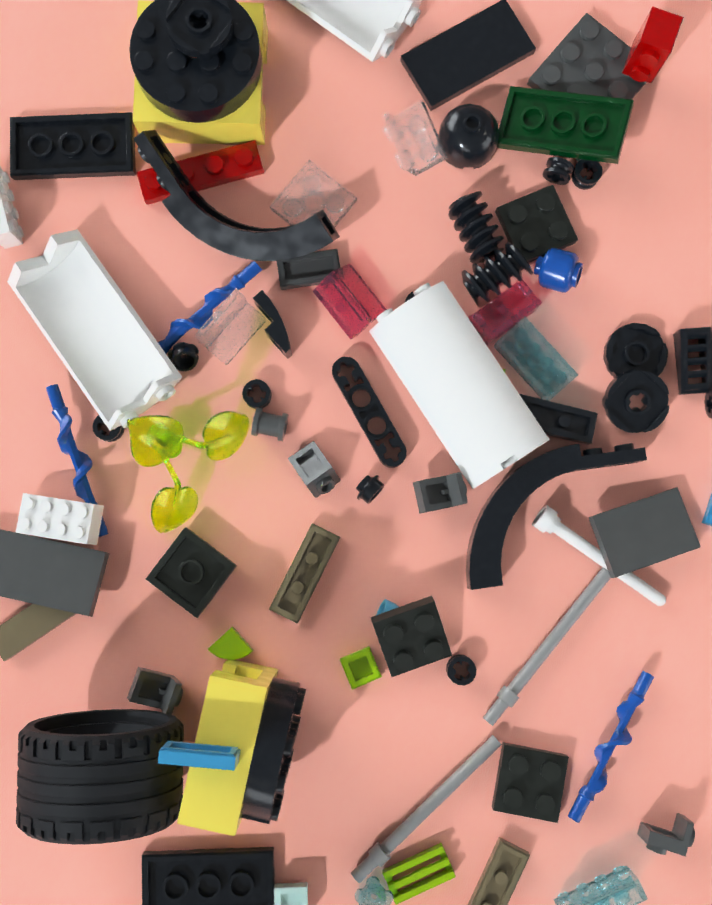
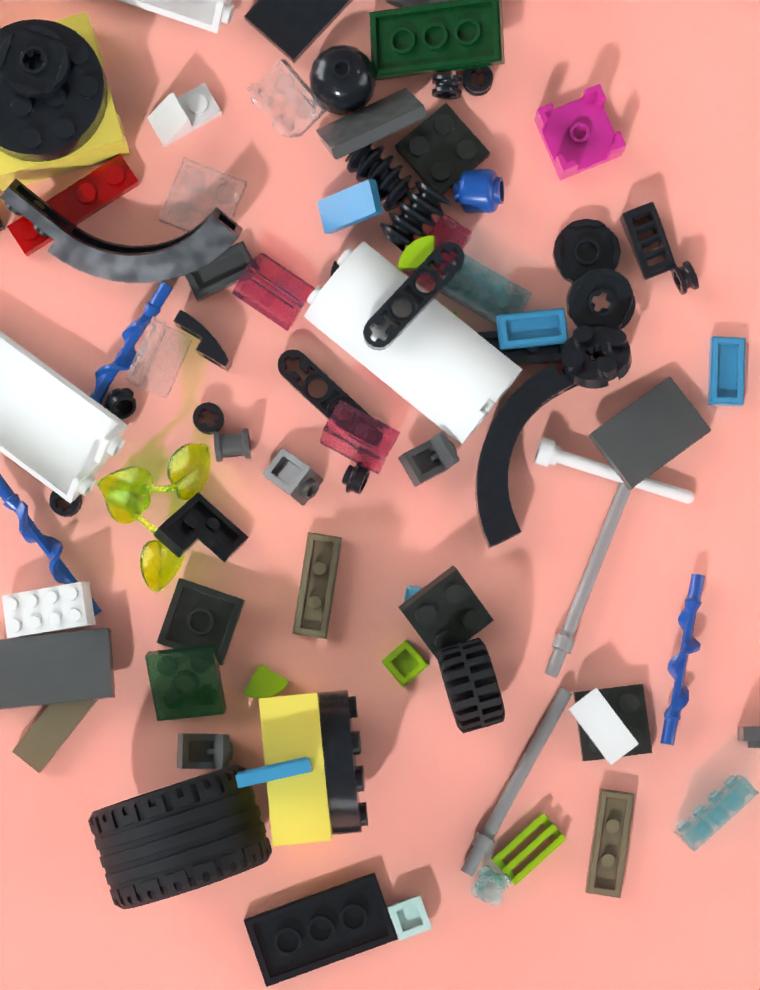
camera: 15 degrees left, 0 degrees up
(159, 623) = (185, 682): none -> clear green plate
(217, 483) = (201, 522): none -> black plate
(318, 125) = (184, 114): none -> white slope
(384, 452) = (359, 436): none -> clear pink panel
(414, 713) = (471, 685): none -> black tyre
(441, 247) = (350, 206): none -> tile
(471, 668) = (517, 627): black bush -> none
(475, 345) = (410, 293): none -> black beam
(483, 180) = (371, 123): none -> dark grey tile
(488, 309) = (416, 253): none -> lime tile
(522, 787) = (603, 726): none -> white tile
(568, 406) = (532, 329): none -> dark azure tile
(616, 433) = (596, 340): none -> black plate
(662, 247) = (579, 133): none -> dark pink panel

